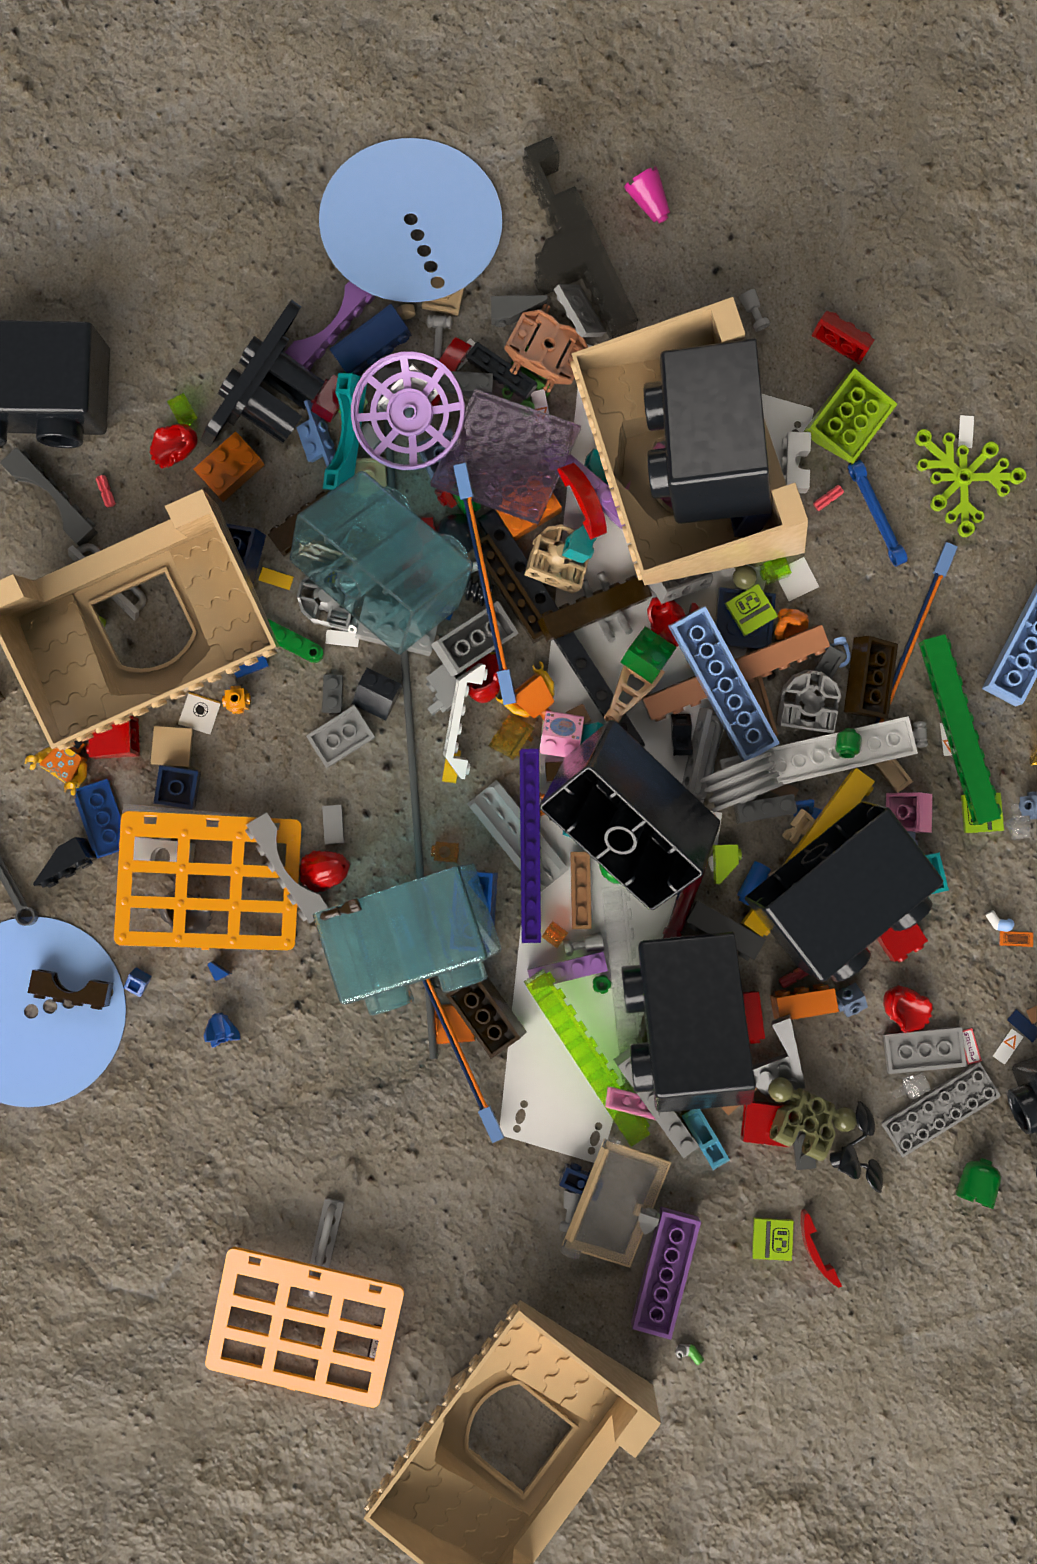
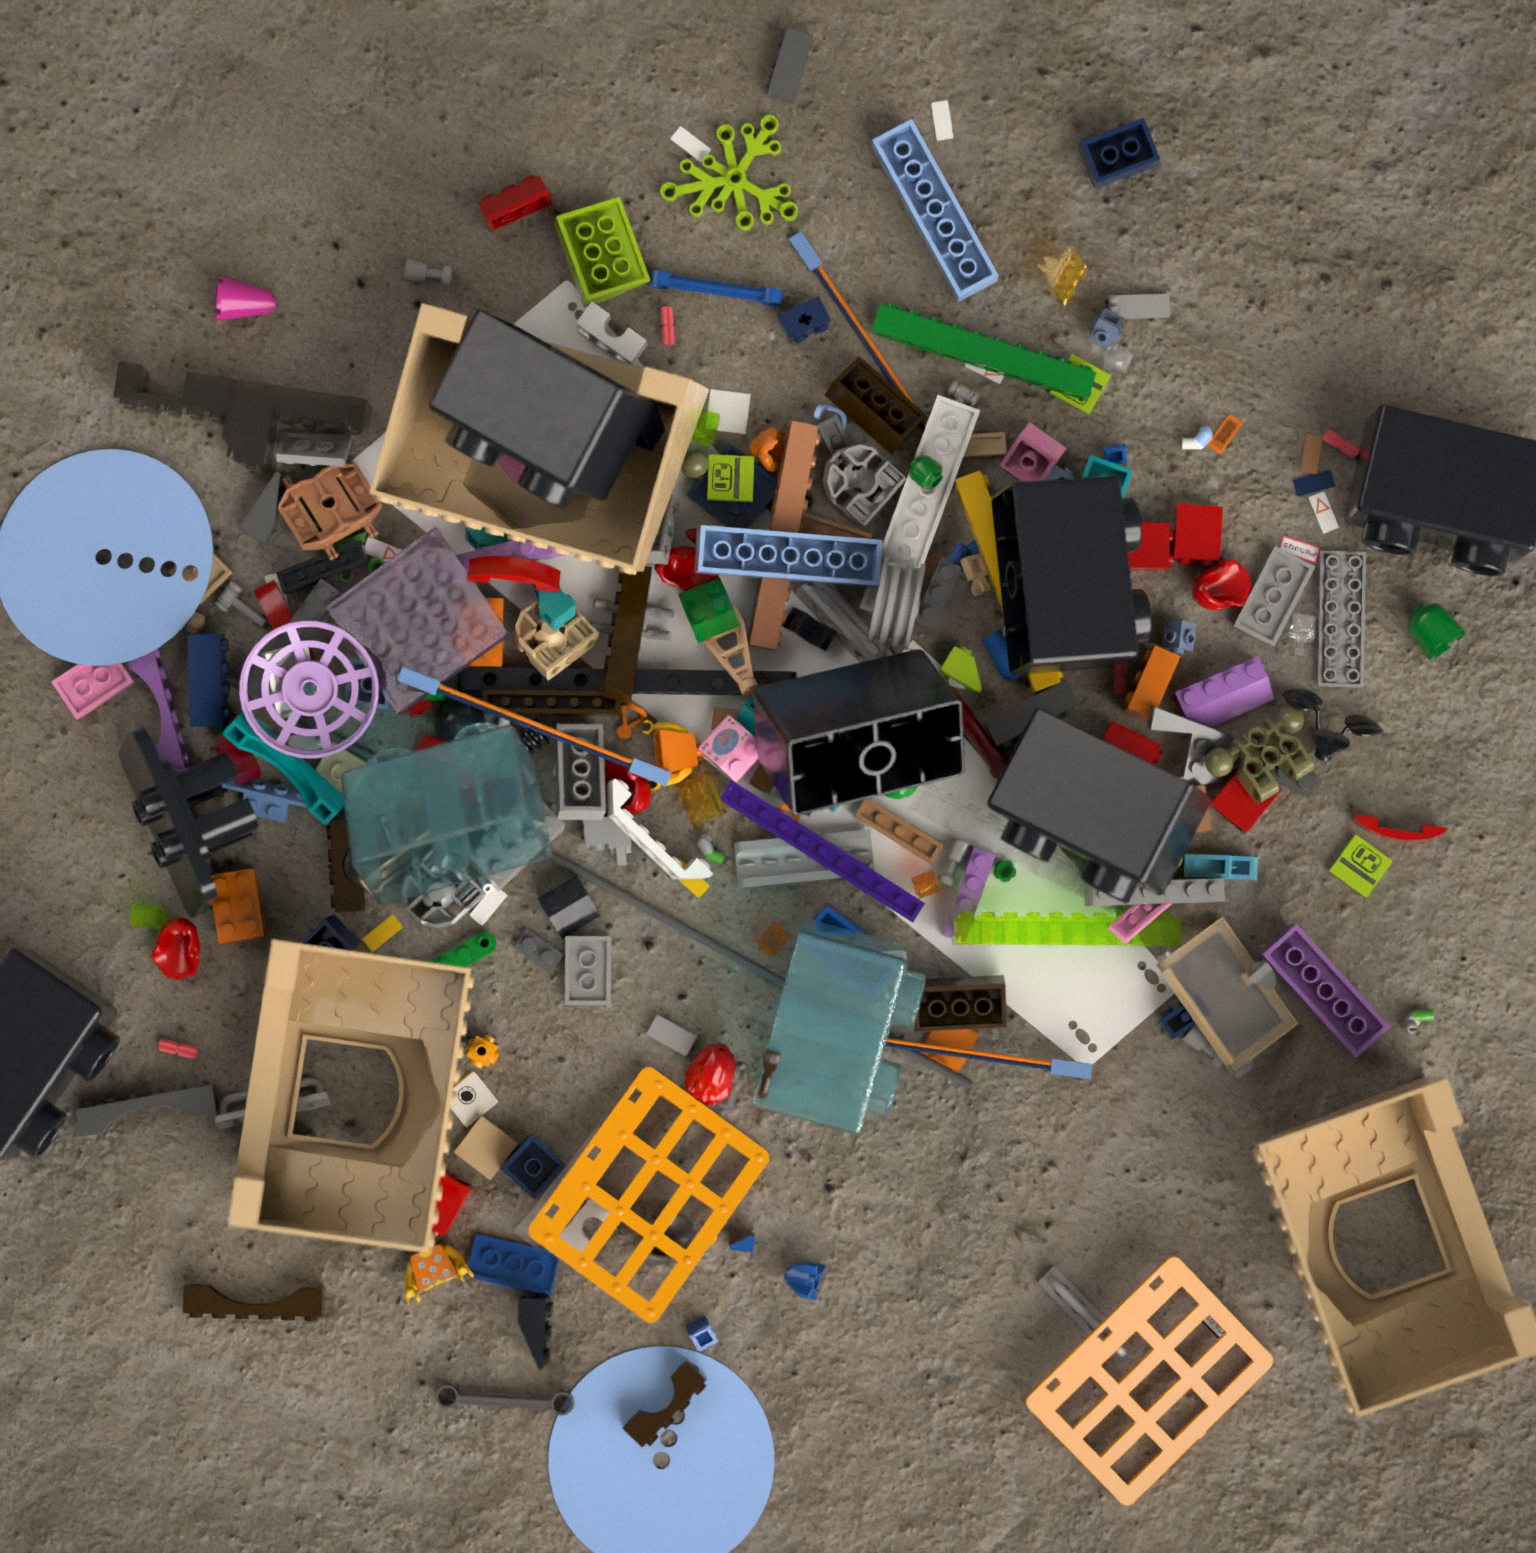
camera: 55 degrees left, 0 degrees up
(265, 834) = (639, 1107): light grey arch -> none
(316, 270) = (90, 686): none -> bright pink plate
(479, 763) = (707, 851): none -> arm
(524, 652) = (624, 730): none -> orange piece
(832, 1061) = (1225, 694): none -> medium lavender slope
(906, 591) = (812, 310): none -> dark blue brick
(932, 966) = (1197, 534): none -> red brick
(951, 870) = (1115, 453): none -> blue slope

